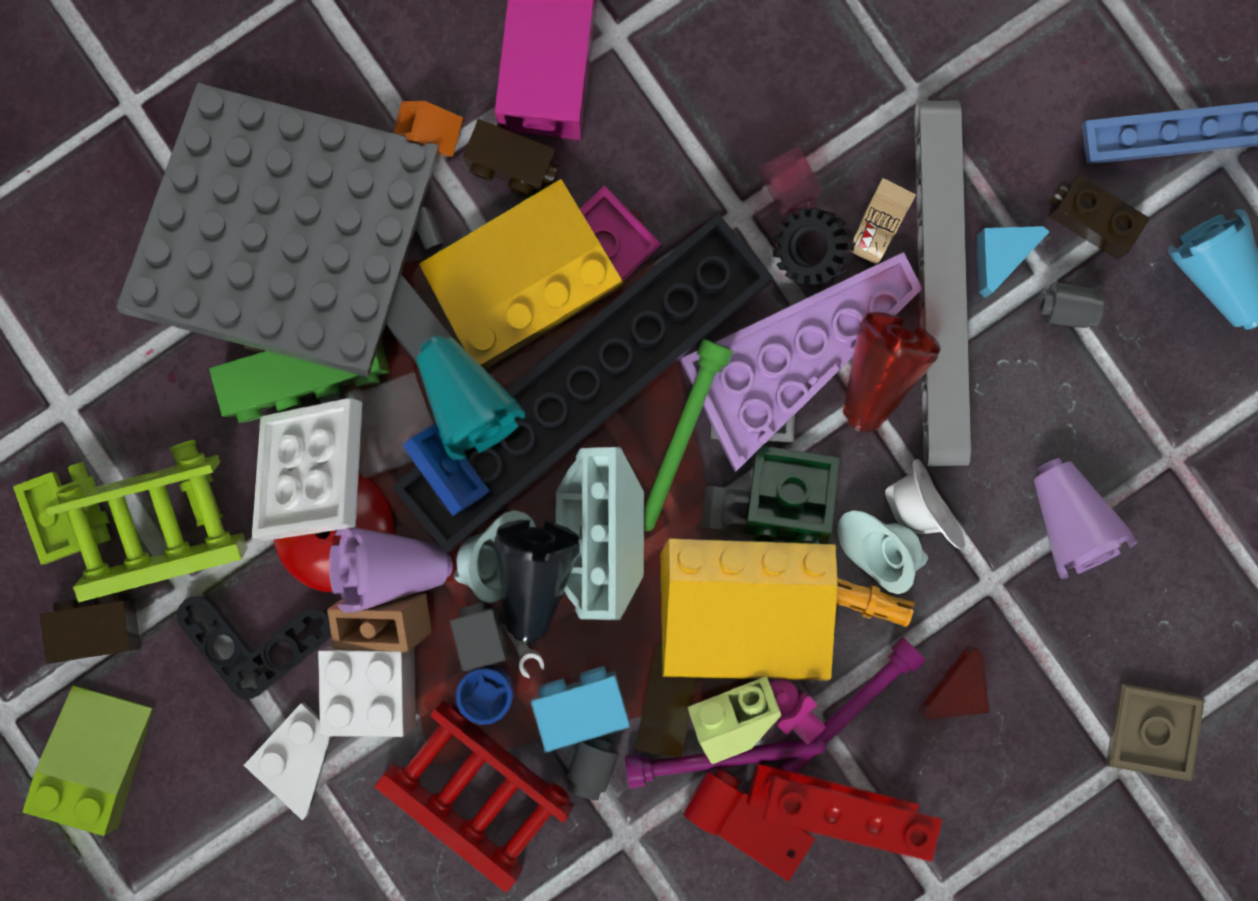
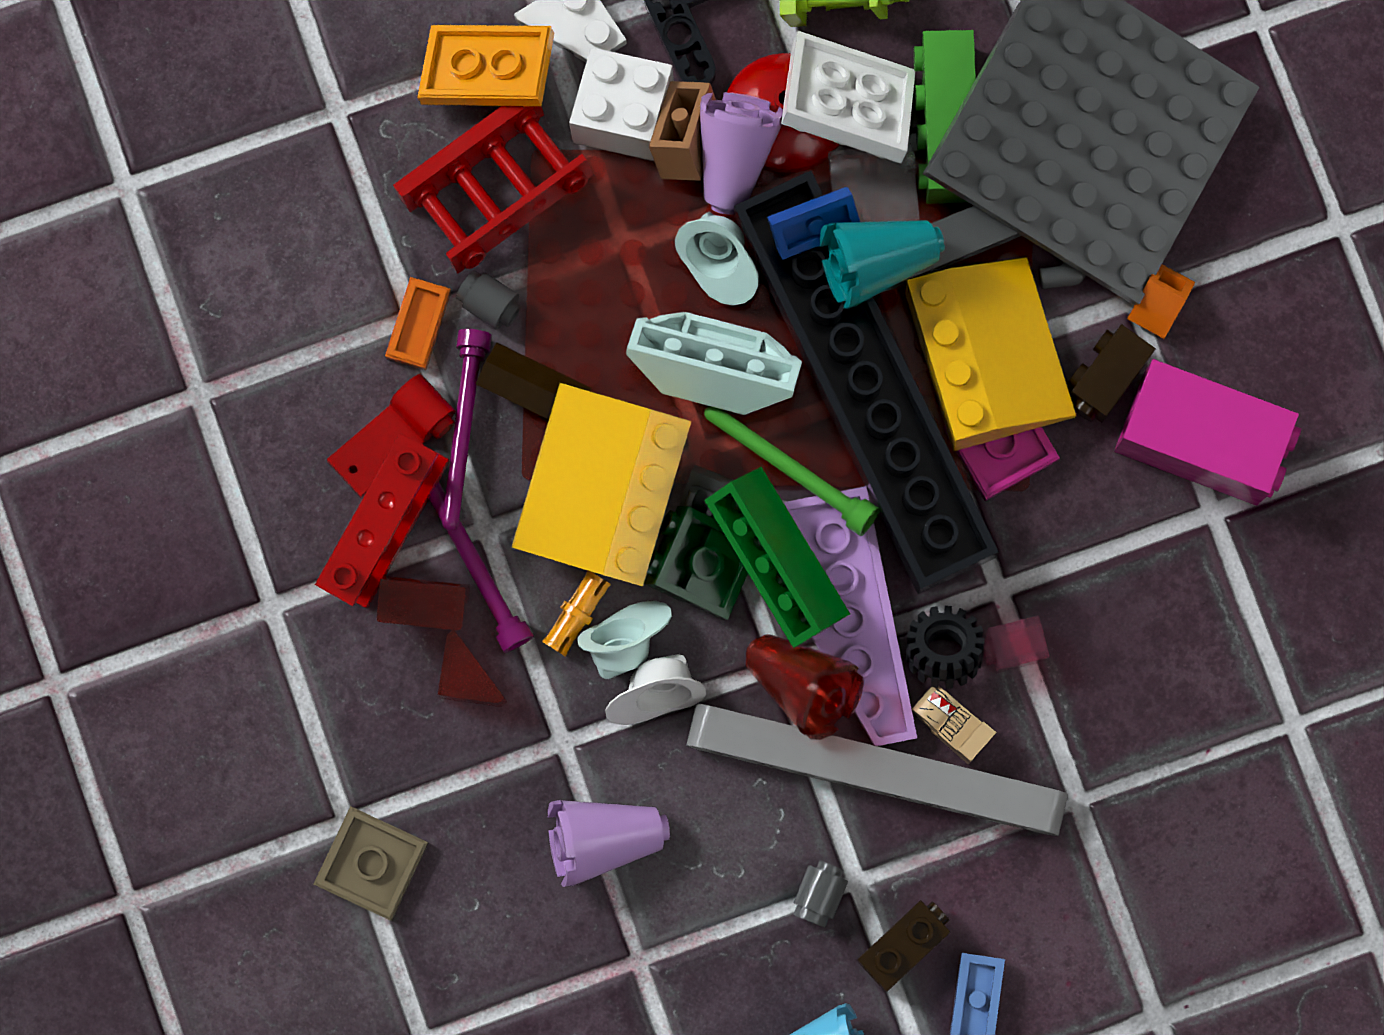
camera: 110 degrees right, 5 degrees down
(362, 833) = (486, 65): none -> light orange tile
(479, 636) = (645, 219): dark grey brick -> none
(485, 694) = (588, 213): blue wheel -> none
(524, 653) = (620, 262): white hand -> none
(533, 574) = (692, 286): black cone -> none
(579, 709) = (548, 297): medium azure brick -> none
(630, 829) = (418, 323): none -> orange tile
(734, 719) = (498, 441): yellowish green slope -> none
(778, 420) = (777, 556): none -> green brick
(796, 711) = (491, 503): dark pink hips -> none
(902, 751) = (422, 602): none -> clear red bracket
(1002, 251) = (890, 838): medium azure slope -> none

